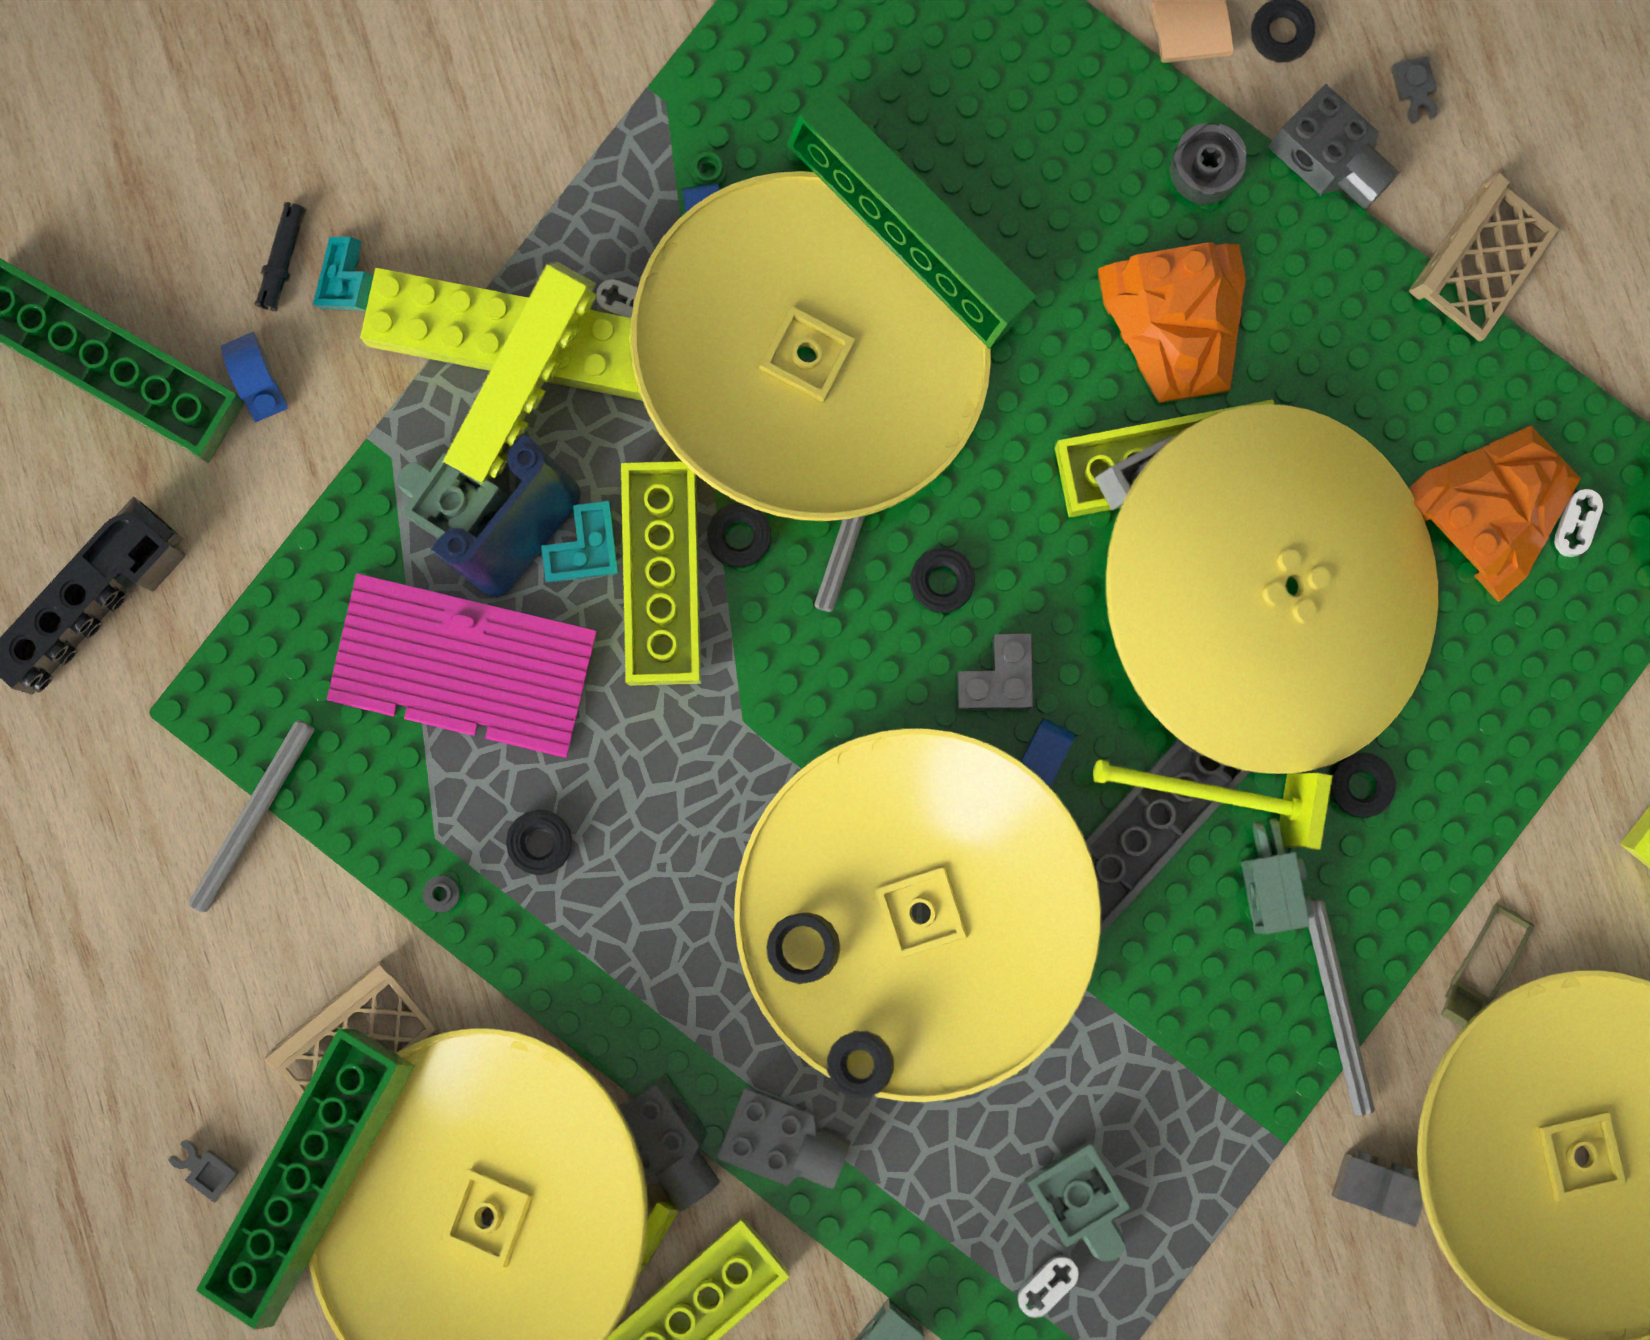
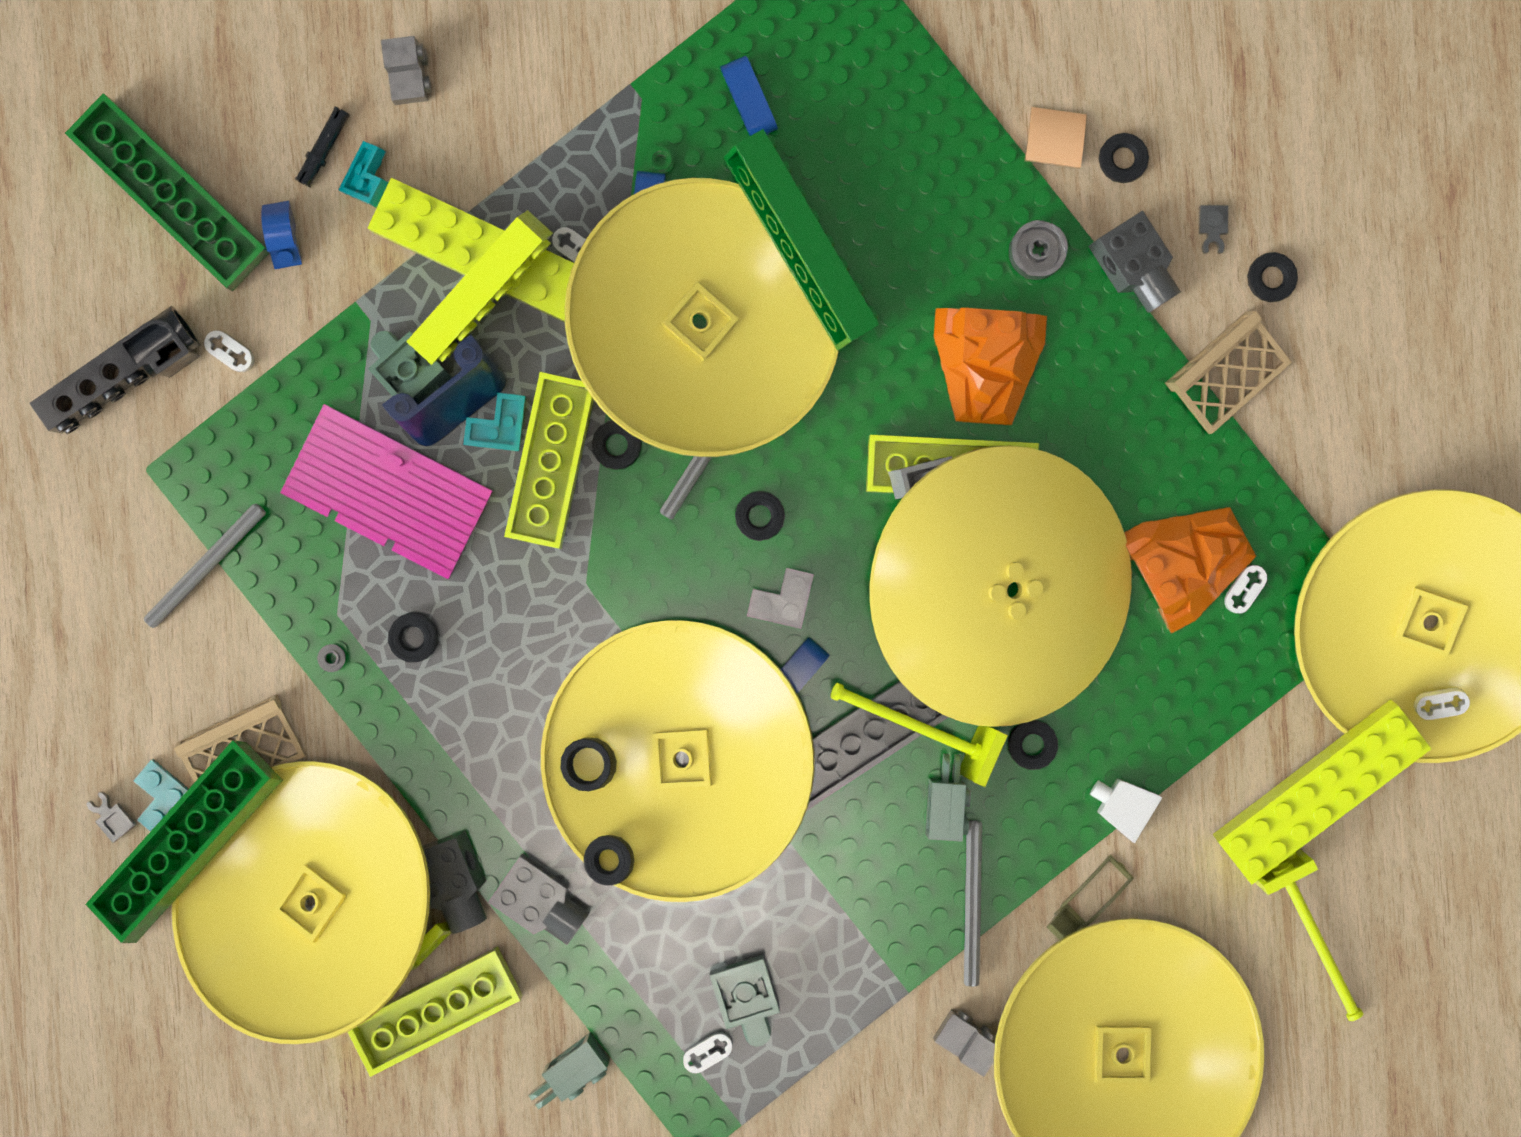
camera: 15 degrees right, 5 degrees up
(224, 531) = (226, 357): none -> white beam
(261, 1115) = (163, 788): none -> plate
(359, 126) = (405, 63): none -> flat silver brick
(796, 61) = (748, 96): none -> blue beam
(1502, 834) = (1125, 806): none -> white torso
(1514, 110) = (1279, 261): none -> black tyre

